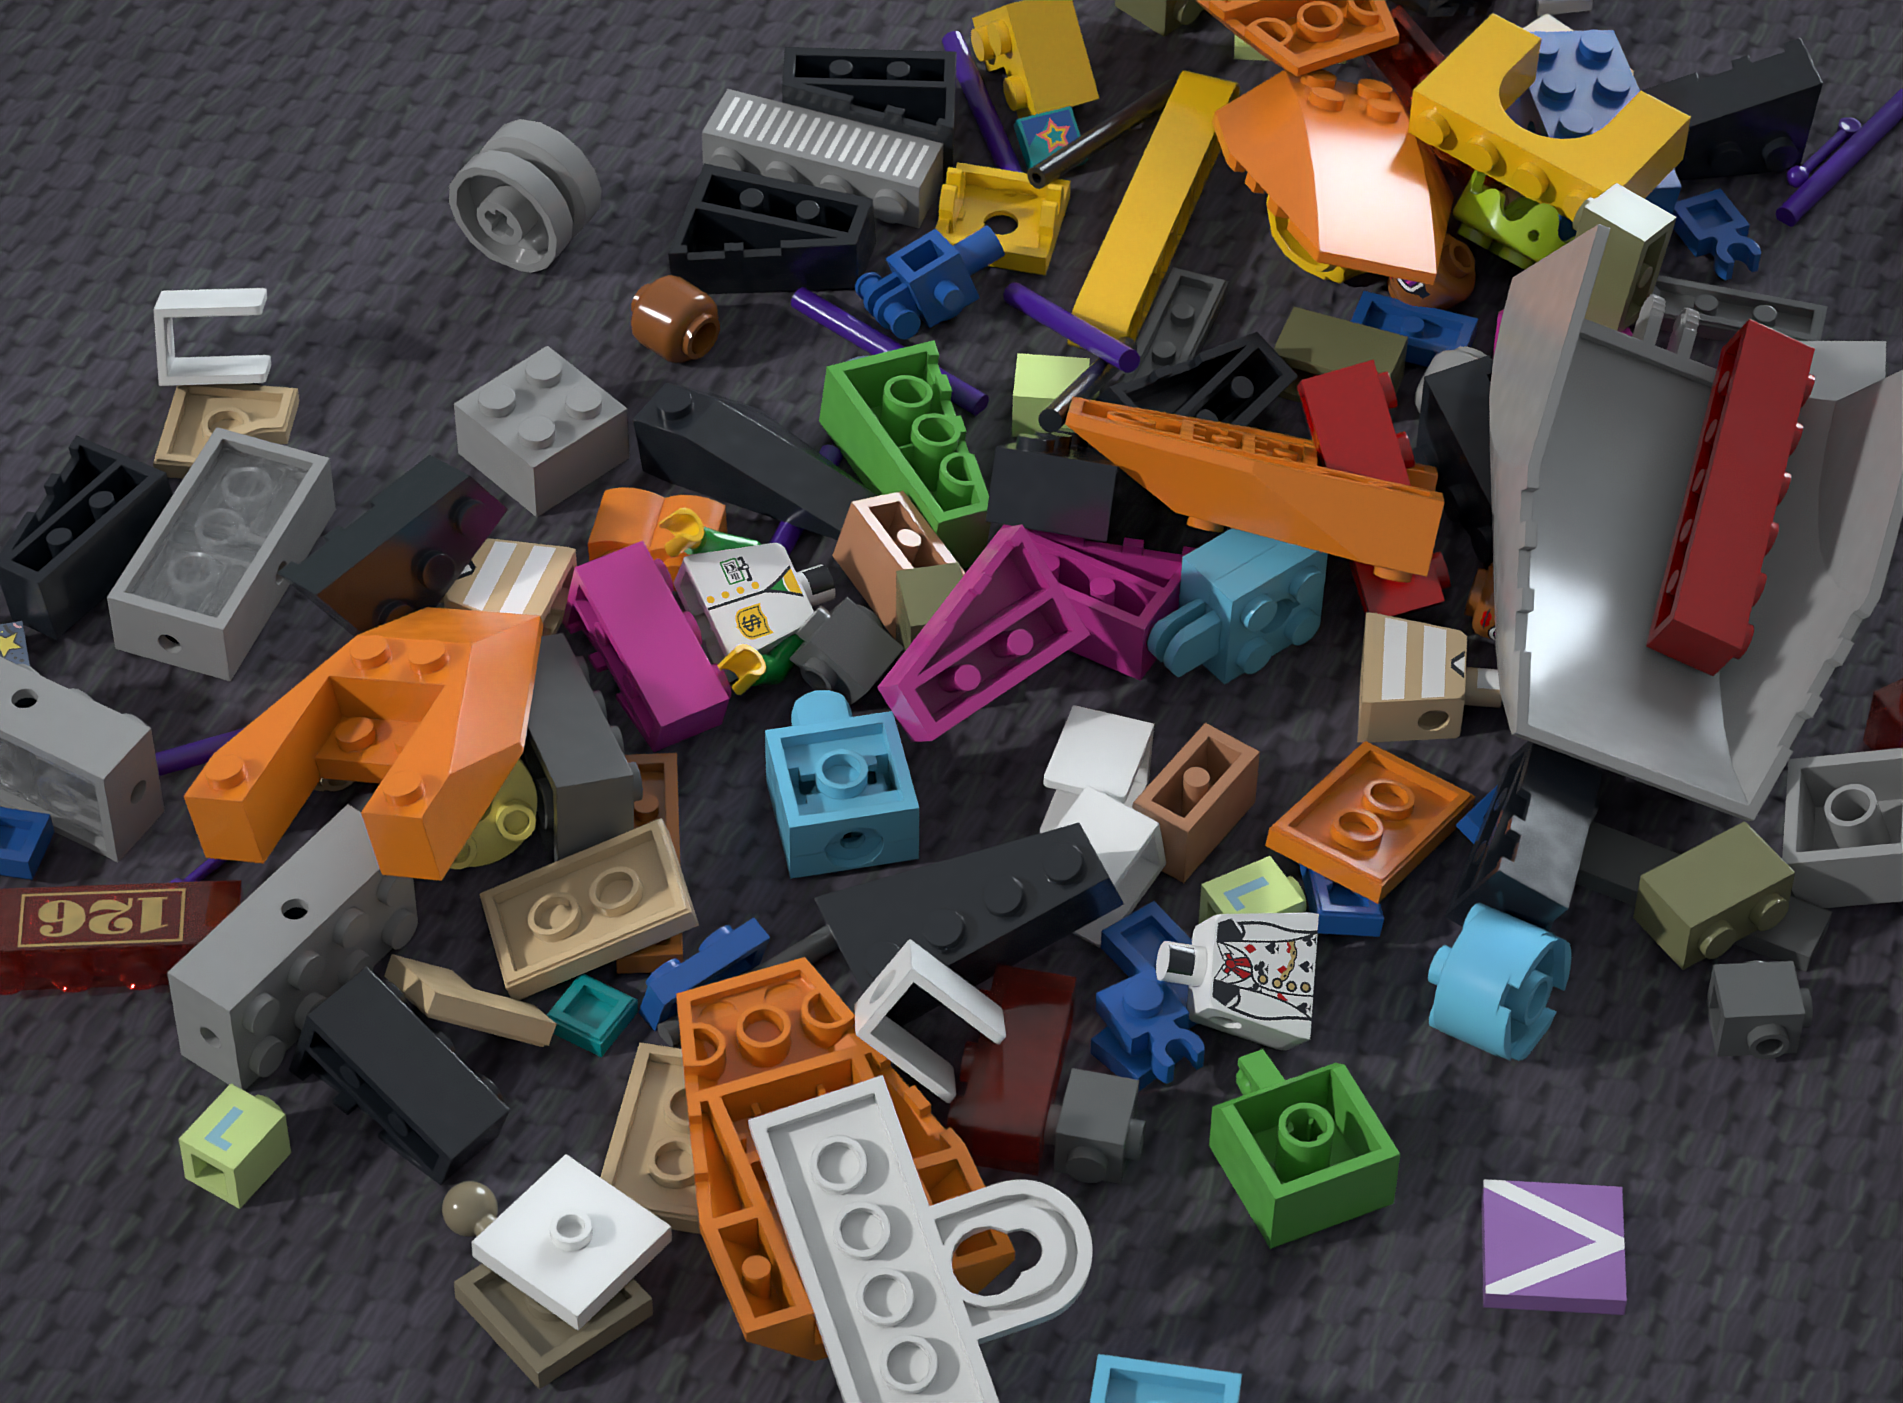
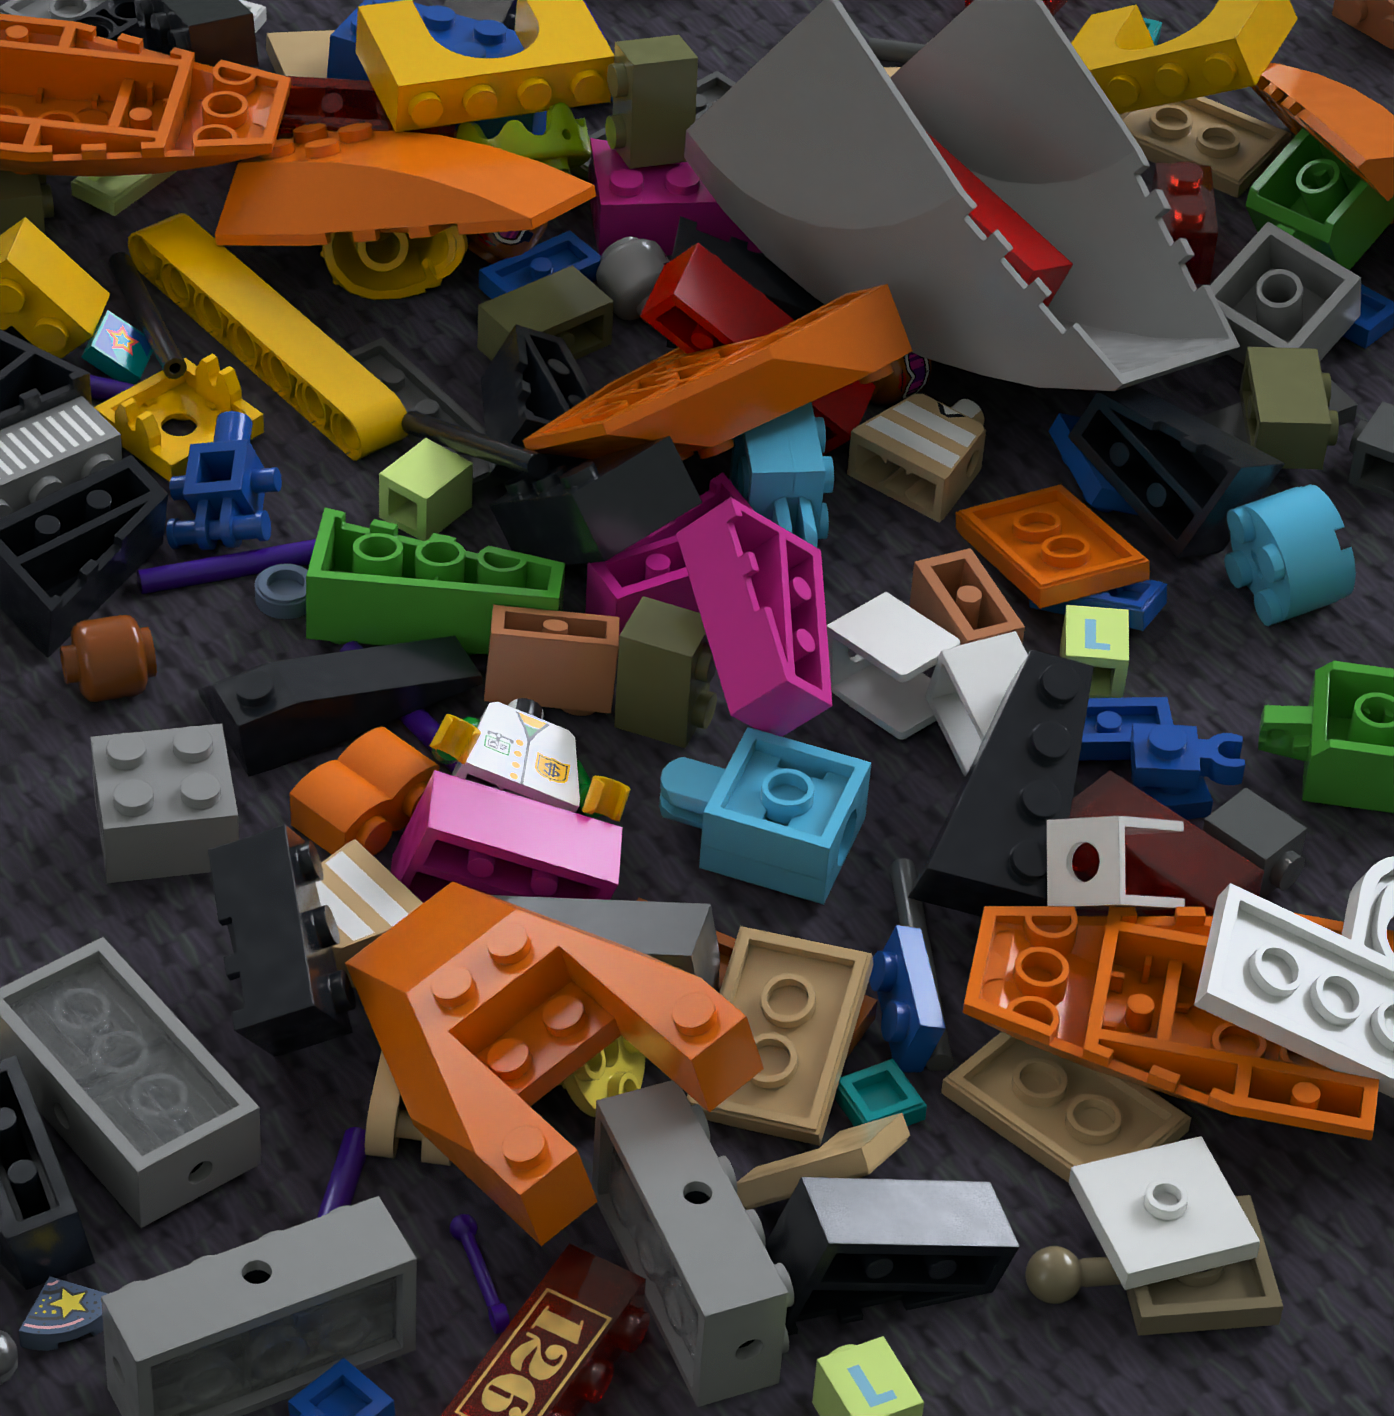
camera: 60 degrees left, 5 degrees down
(844, 650) = (625, 736): dark grey brick -> none
(1072, 327) = (377, 430): dark purple bar -> none
(1248, 975) = (1187, 670): white torso -> none

